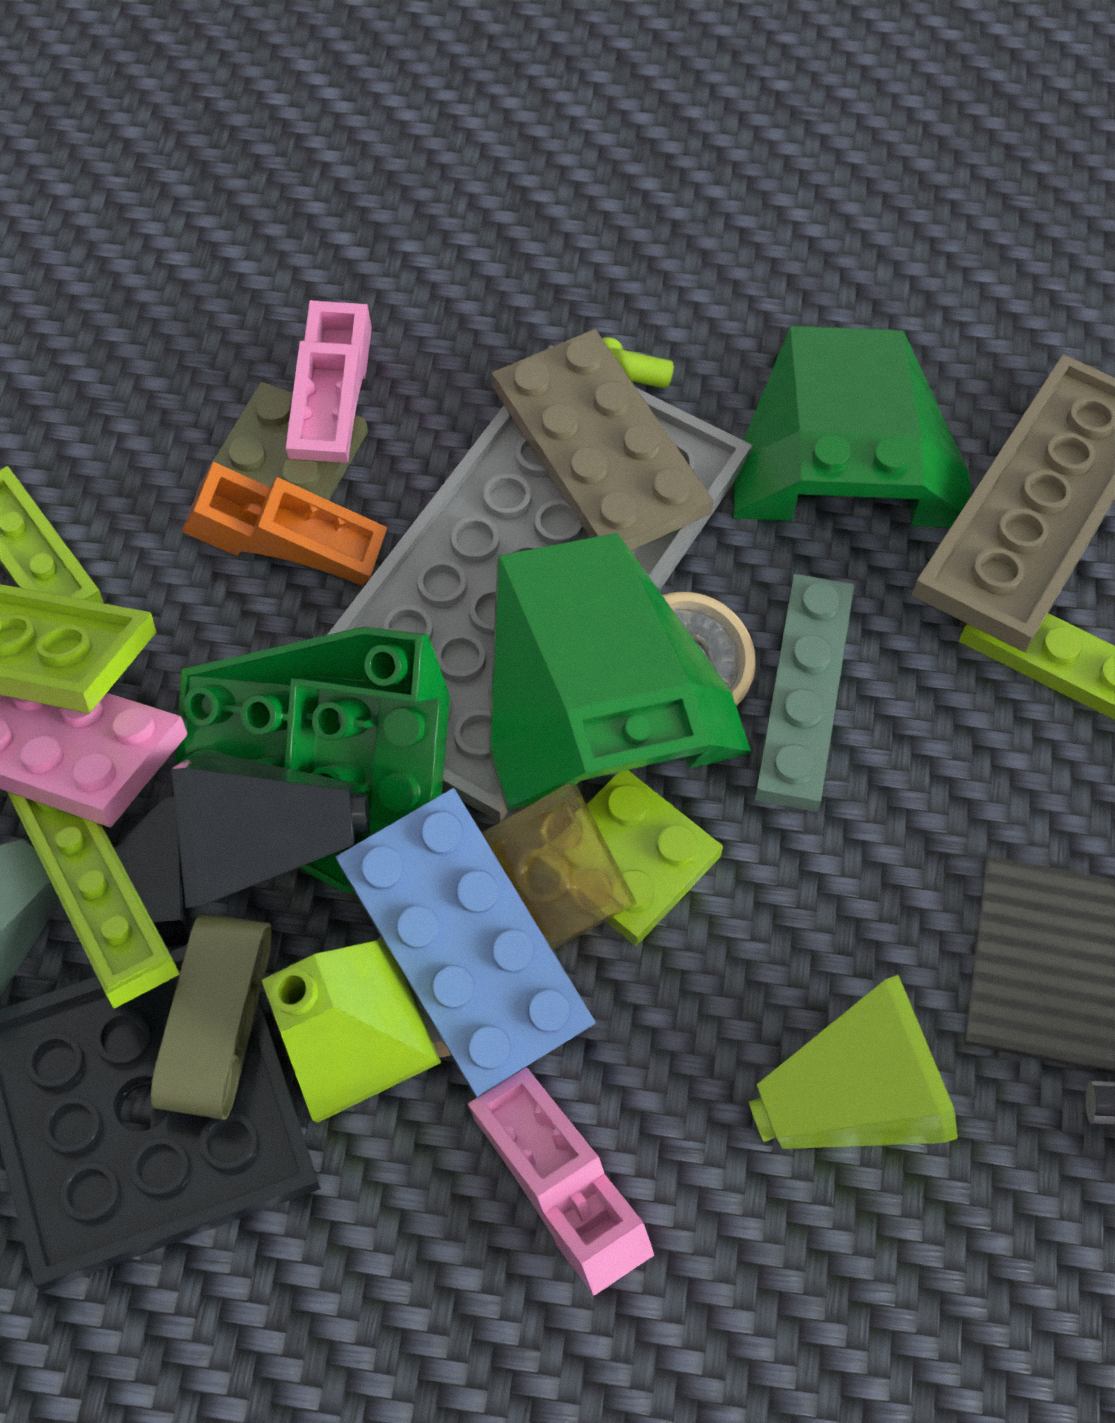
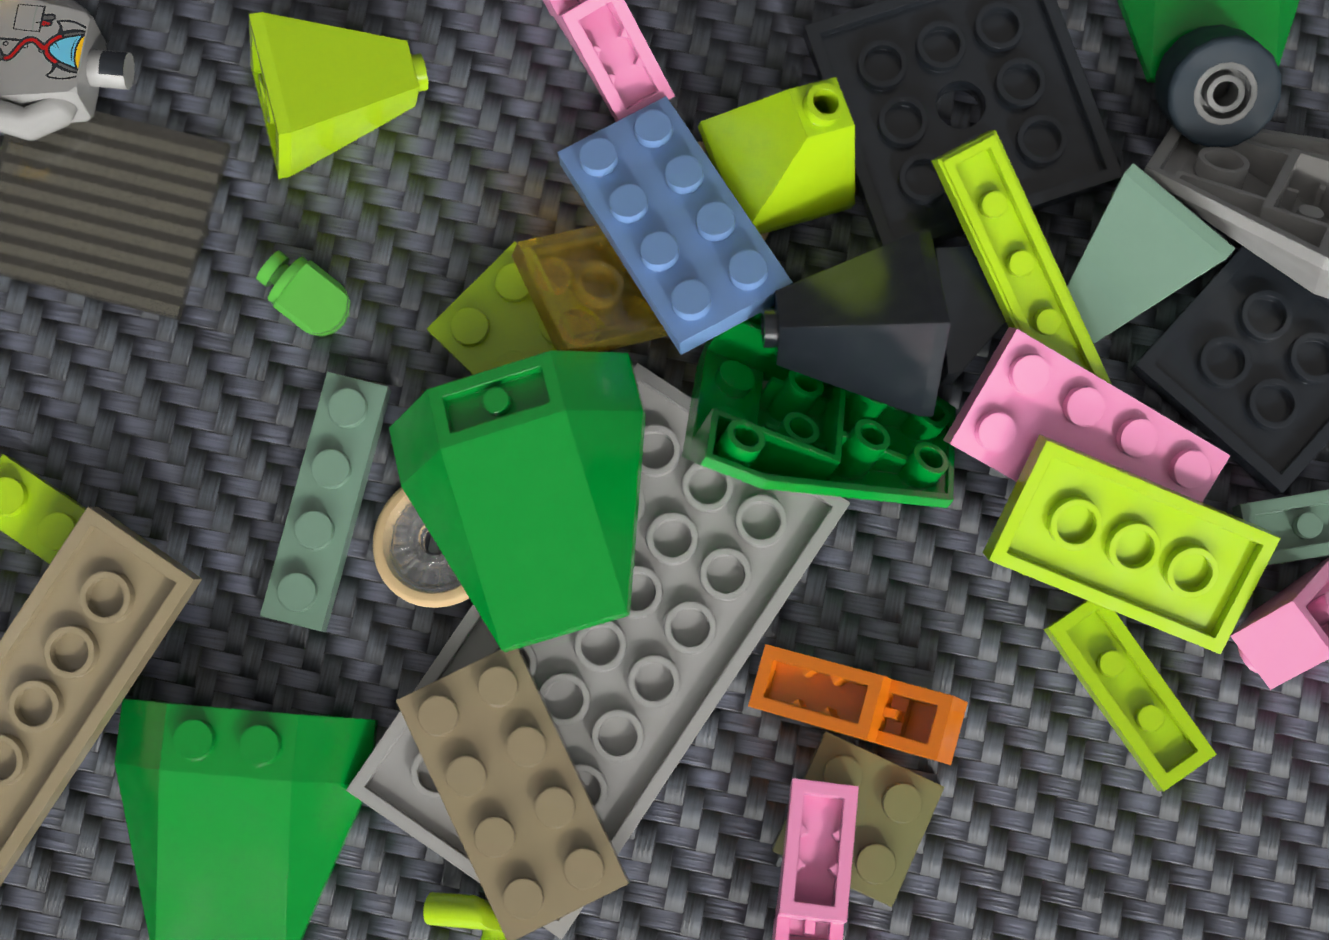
camera: 170 degrees left, 20 degrees up
(211, 1016) = (901, 153): olive beam -> none
(853, 875) = (305, 294): none -> bright green arm

